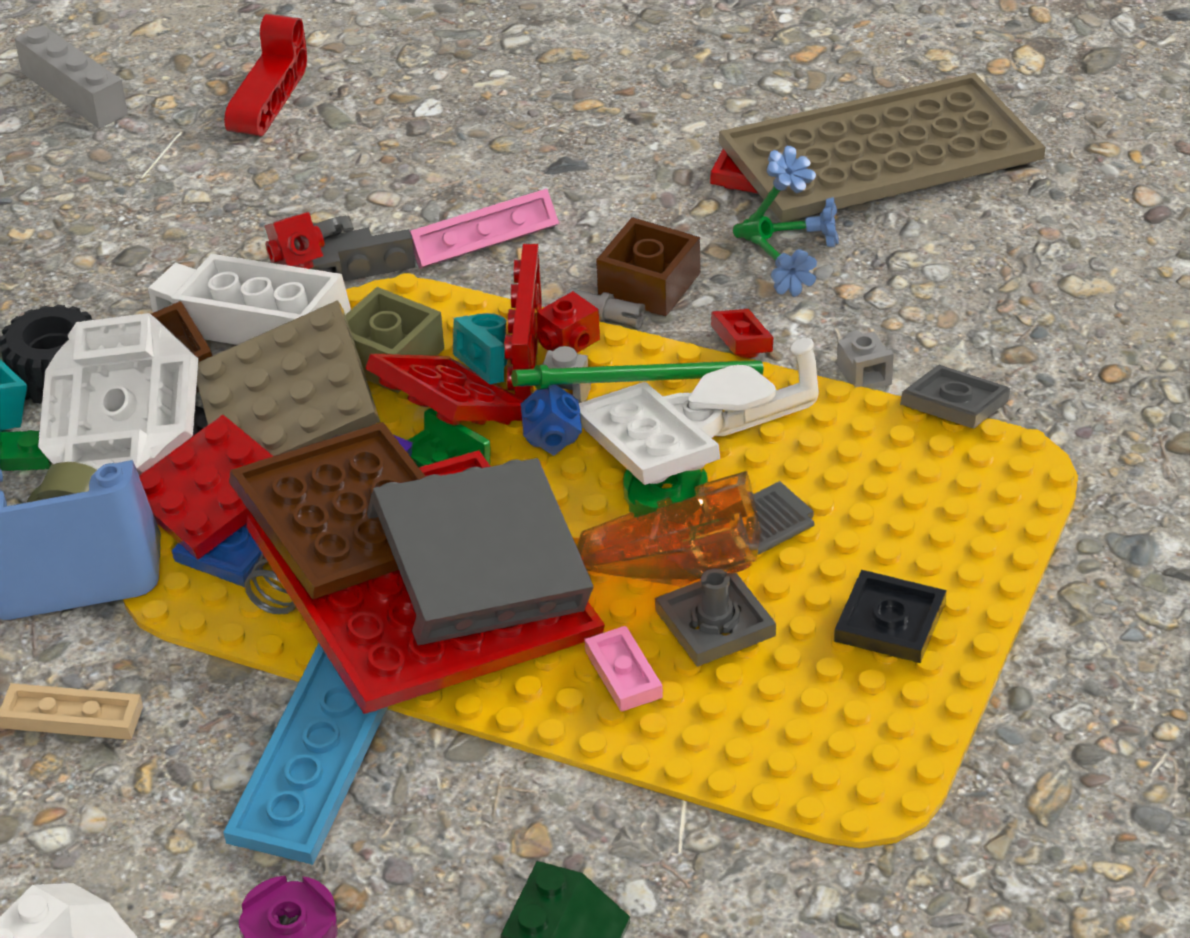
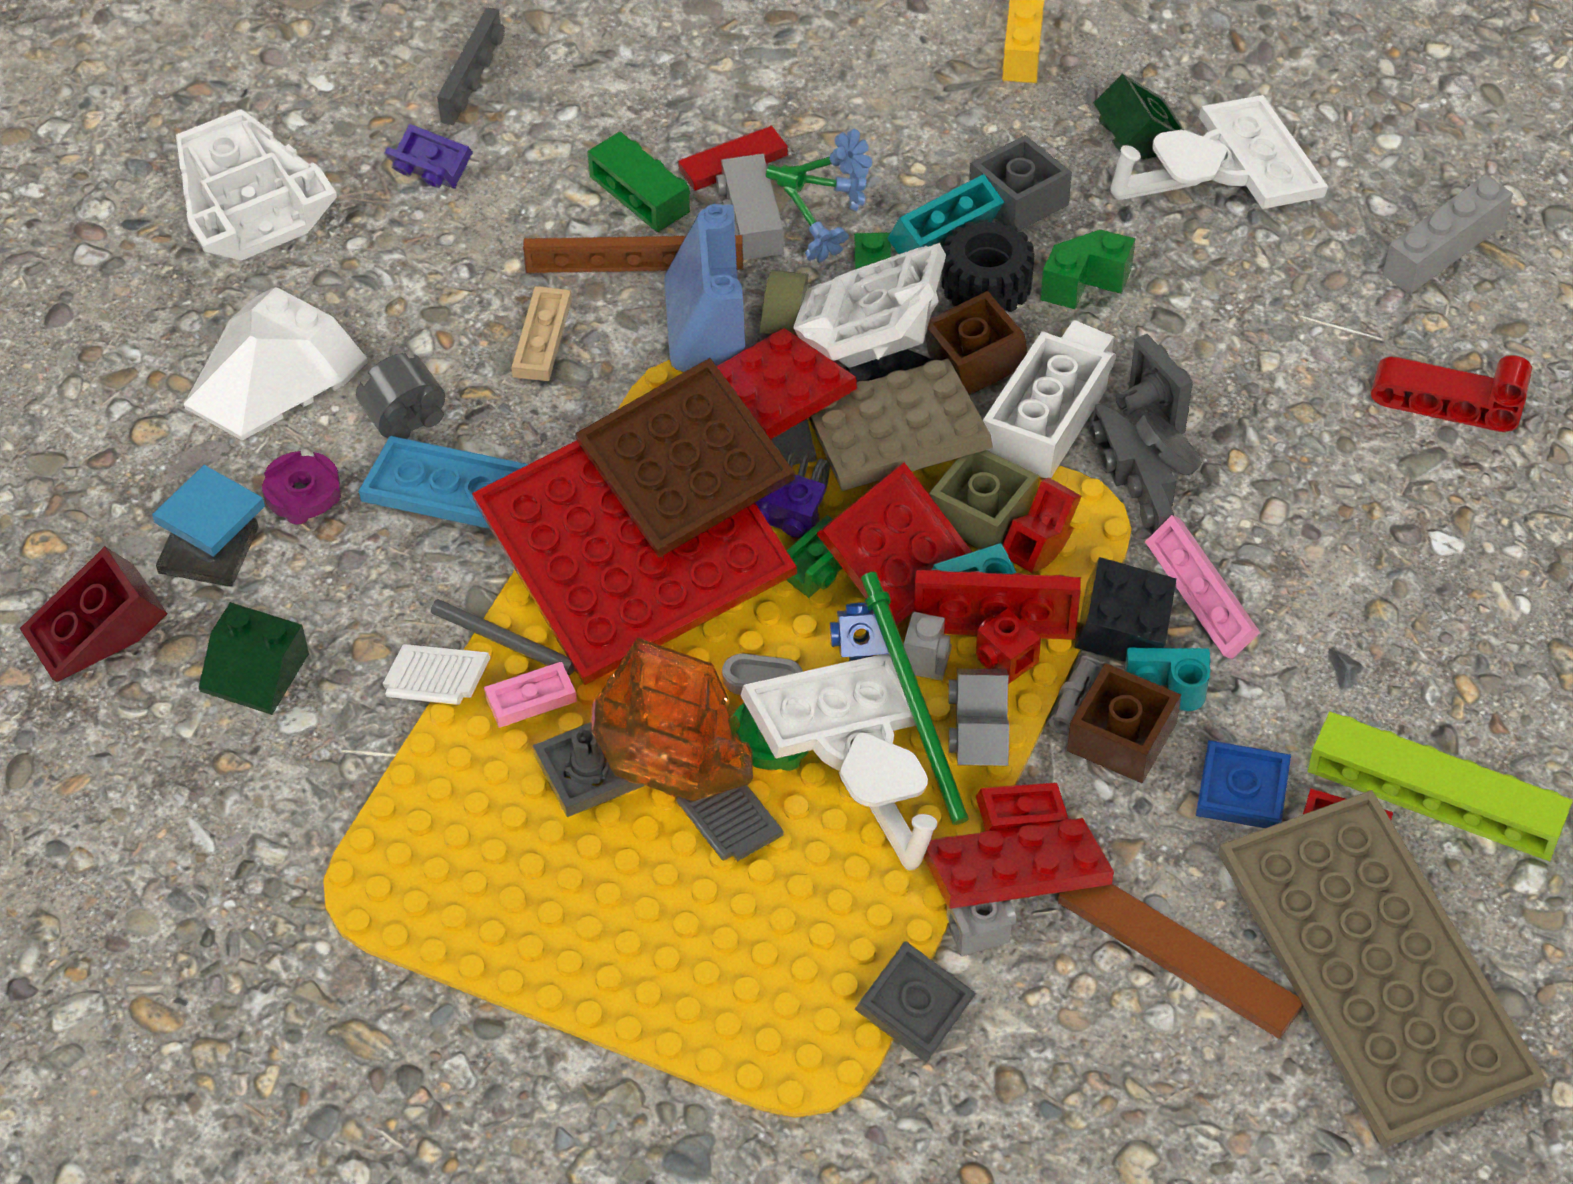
camera: 90 degrees right, 10 degrees up
(62, 280) = (1092, 259): none -> green brick
(173, 813) = (401, 396): none -> dark grey brick
(247, 235) = (1157, 384): none -> dark grey plate
(298, 229) = (1114, 408): red brick -> none
(412, 283) = (1042, 534): none -> red brick
(481, 549) = (628, 550): dark grey panel -> none
(505, 245) = (1124, 609): none -> black brick
(535, 706) = (500, 635): none -> dark grey bar
(583, 765) = (435, 674): none -> white window
(587, 239) = (1178, 668): none -> teal plate
(591, 499) = (751, 668): none -> light grey tile
(631, 340) = (981, 717): none -> brick
(698, 113) = (1440, 785): none -> lime brick
(702, 214) = (1243, 785): none -> blue tile
(793, 269) = (1205, 827): medium blue plant -> none
(809, 311) = (1017, 863): none -> red plate
(873, 256) = (1186, 956): none -> dark orange tile
(890, 616) = (574, 907): black plate -> none

